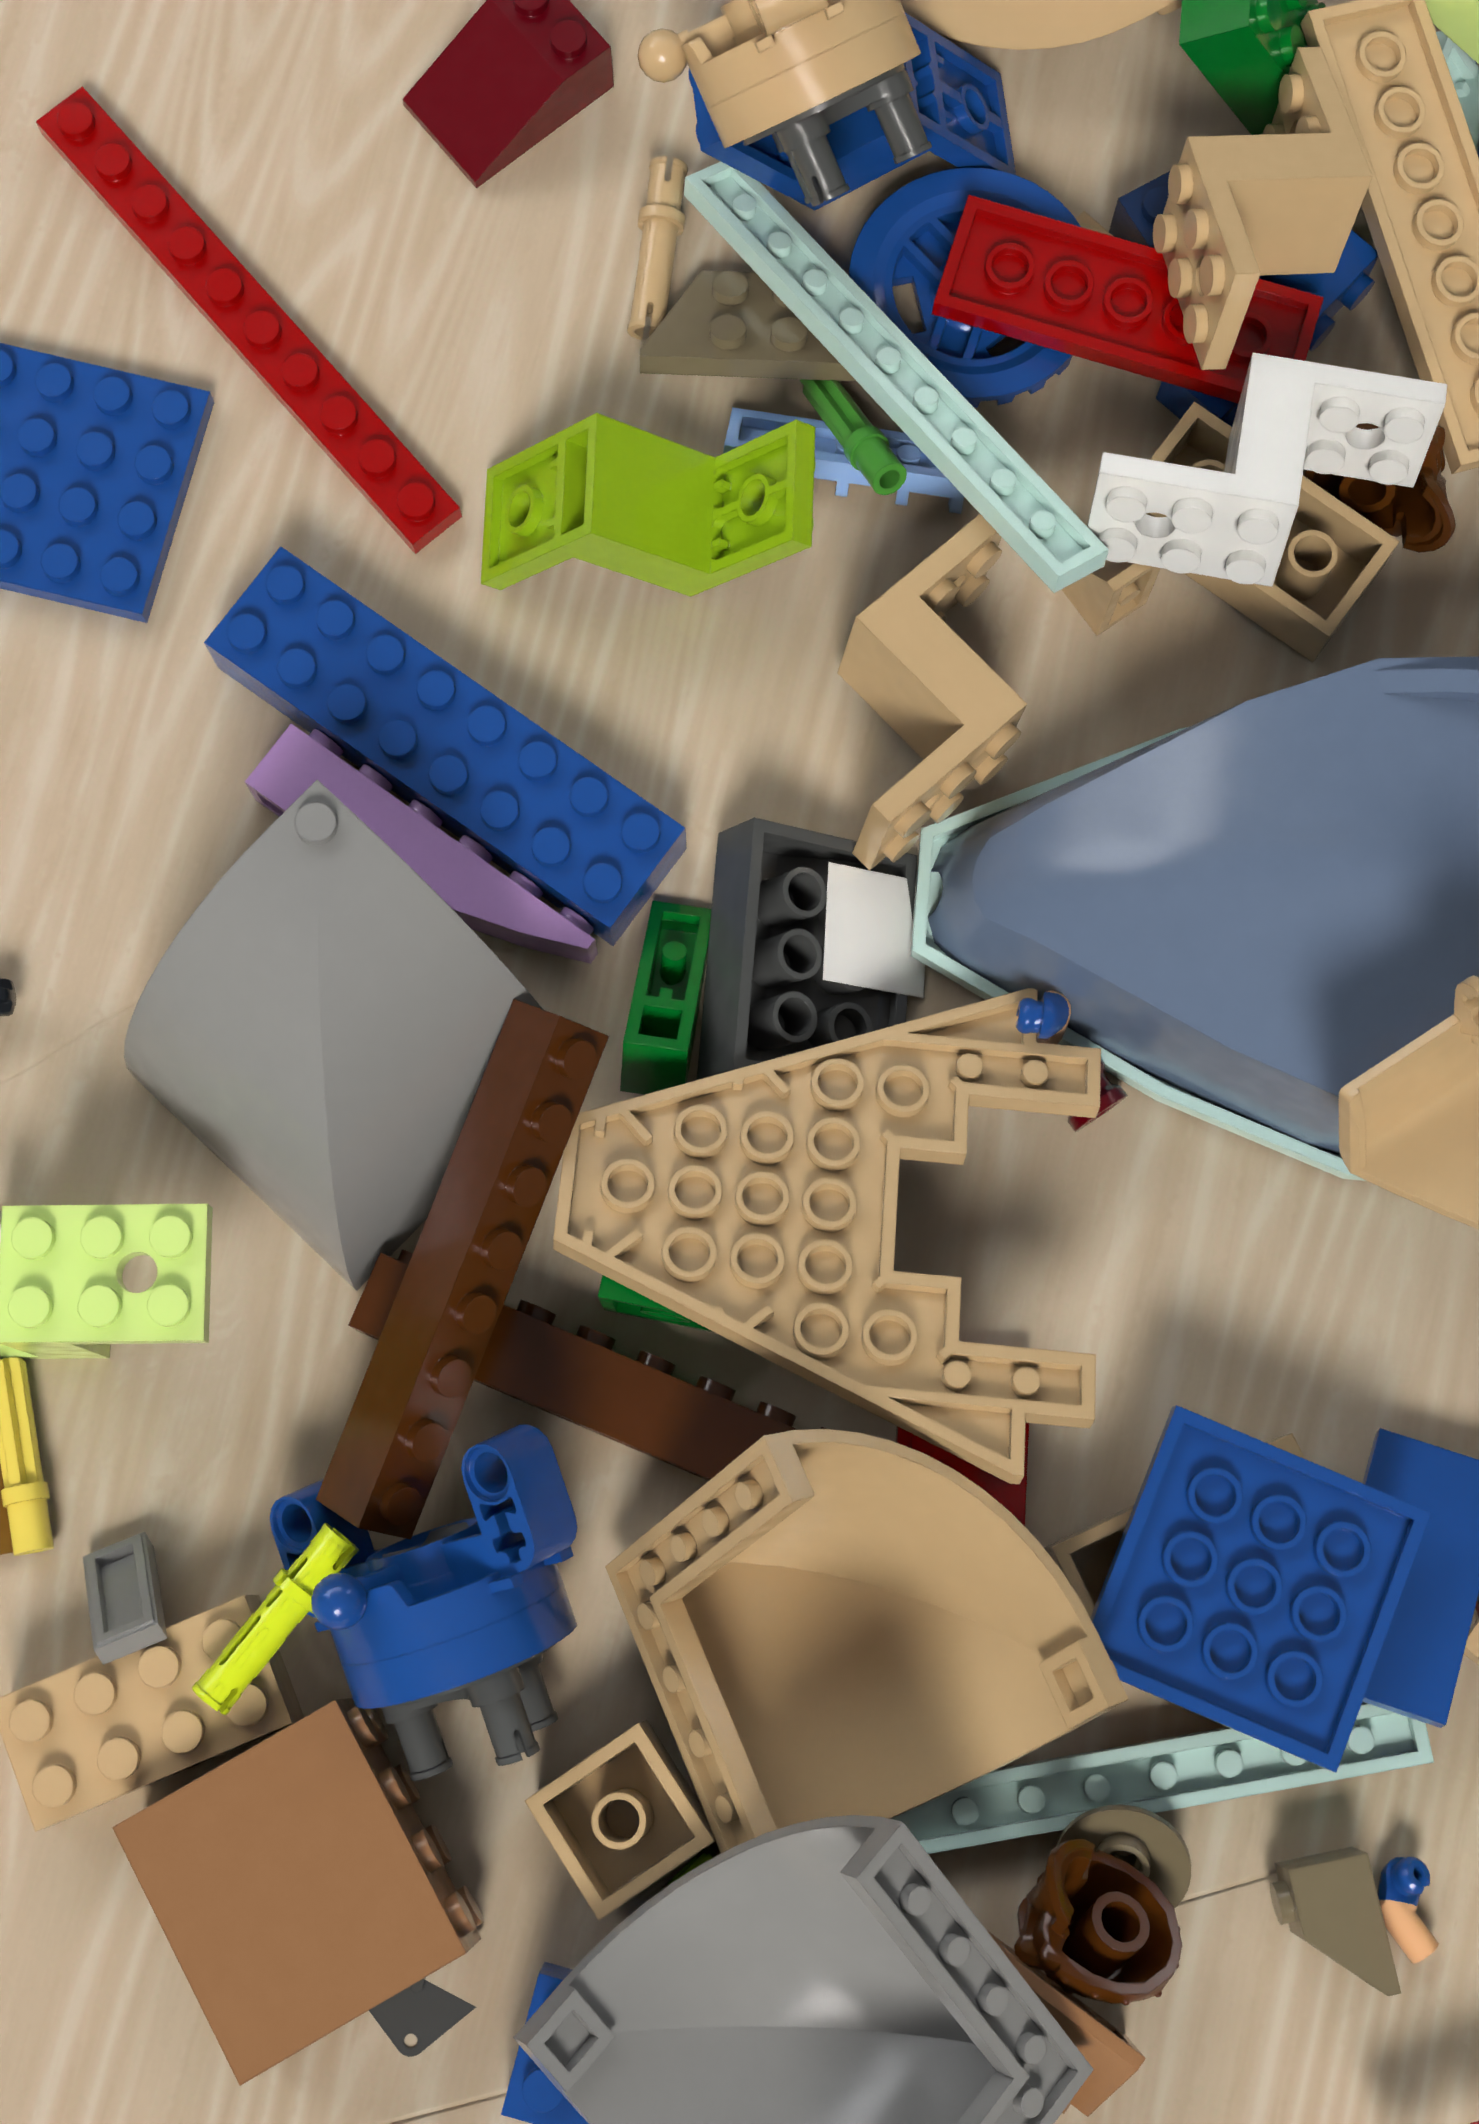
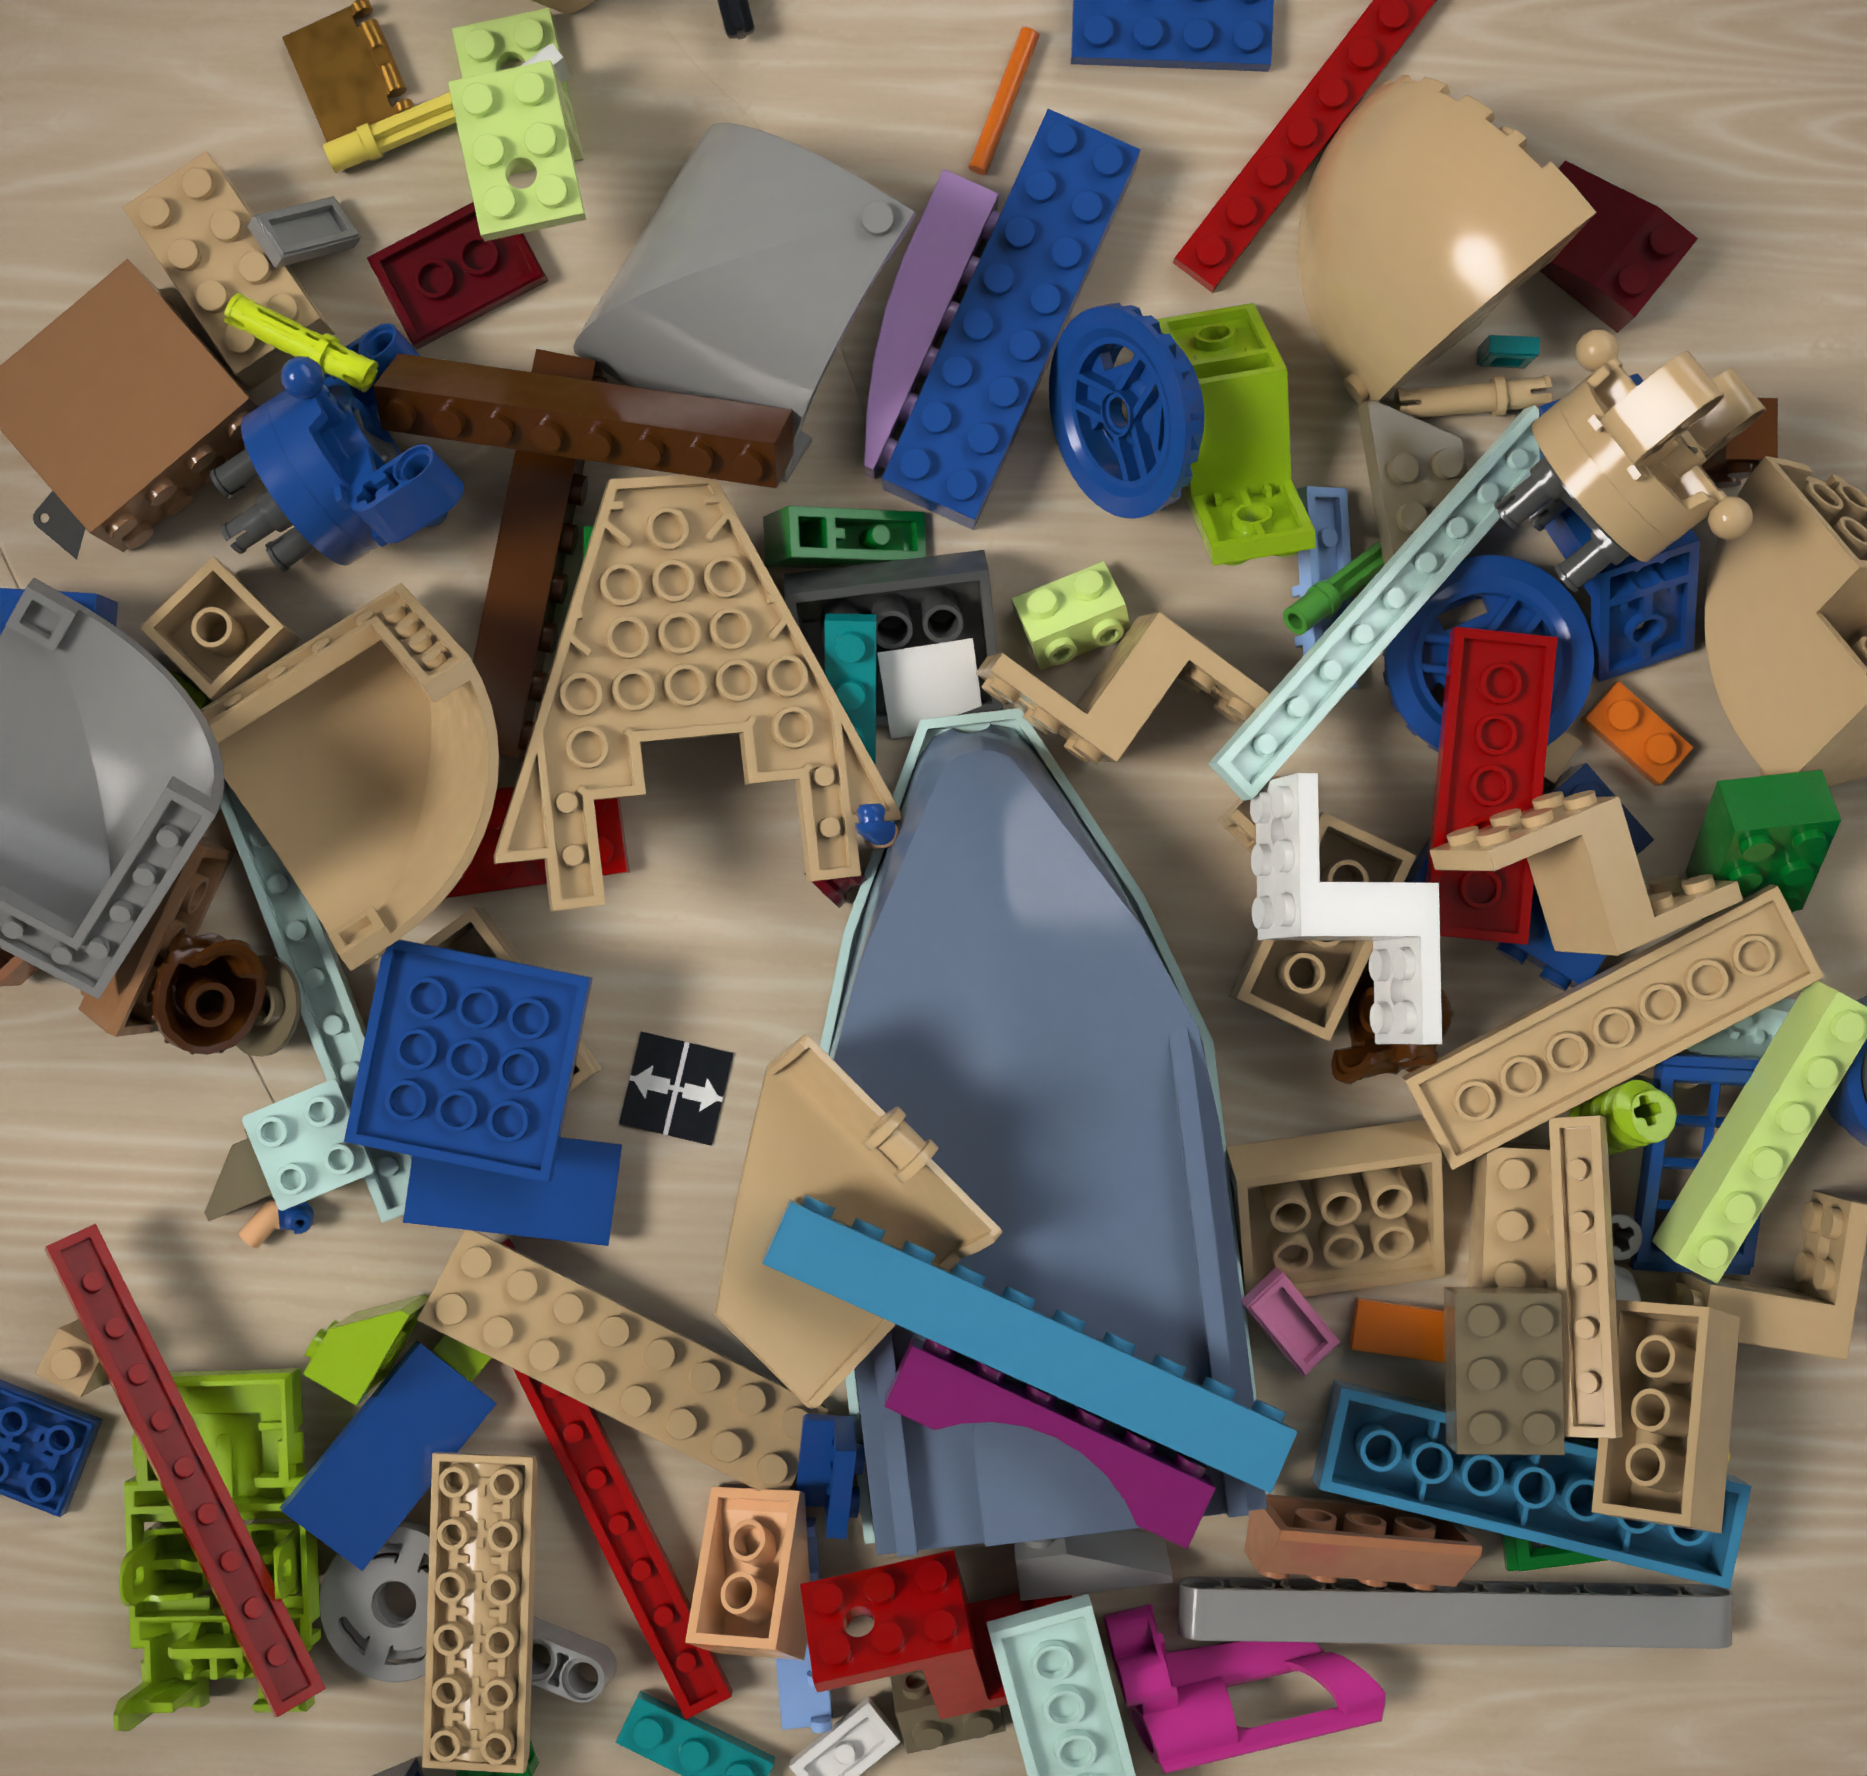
camera: 80 degrees right, 10 degrees up
(173, 706) = (1004, 100): none -> orange bar
(217, 1420) = (452, 275): none -> dark red tile
(461, 239) = (1422, 230): none -> tan brick
(610, 675) = (1120, 464): none -> blue gear
(612, 198) = (1508, 351): none -> teal tile
(818, 747) = (1072, 615): none -> yellowish green bracket
(831, 1009) = (852, 670): none -> teal plate
(1086, 151) = (1636, 733): none -> orange plate
(1314, 1351) = (676, 1088): none -> black sticker
(1320, 1834) = (304, 1144): none -> light aqua bracket

